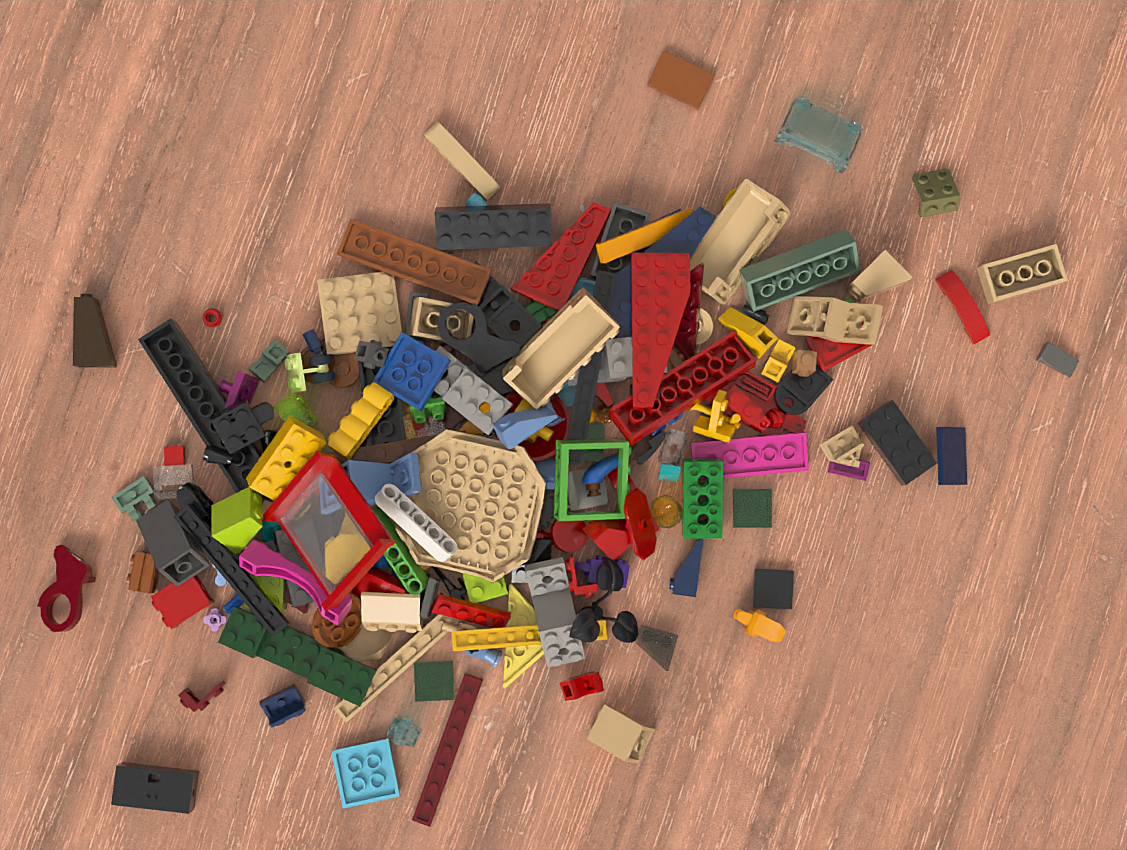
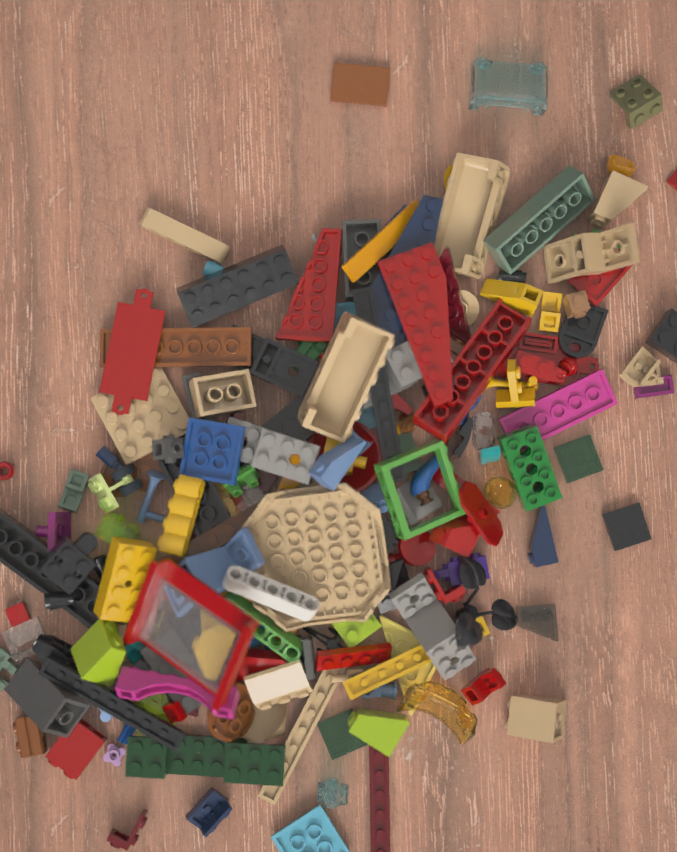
camera: 20 degrees left, 0 degrees up
(285, 599) = (174, 711): none -> red tile
(349, 377) = (144, 512): none -> medium blue piece
(372, 251) = (132, 351): none -> red piece
(468, 687) = (378, 728): none -> lime slope
(480, 347) = (270, 403): black animal -> none
(537, 689) = (442, 704): none -> clear yellow windscreen
(758, 624) = (627, 565): light orange hinge -> none
(896, 248) = (620, 165): none -> light orange hair

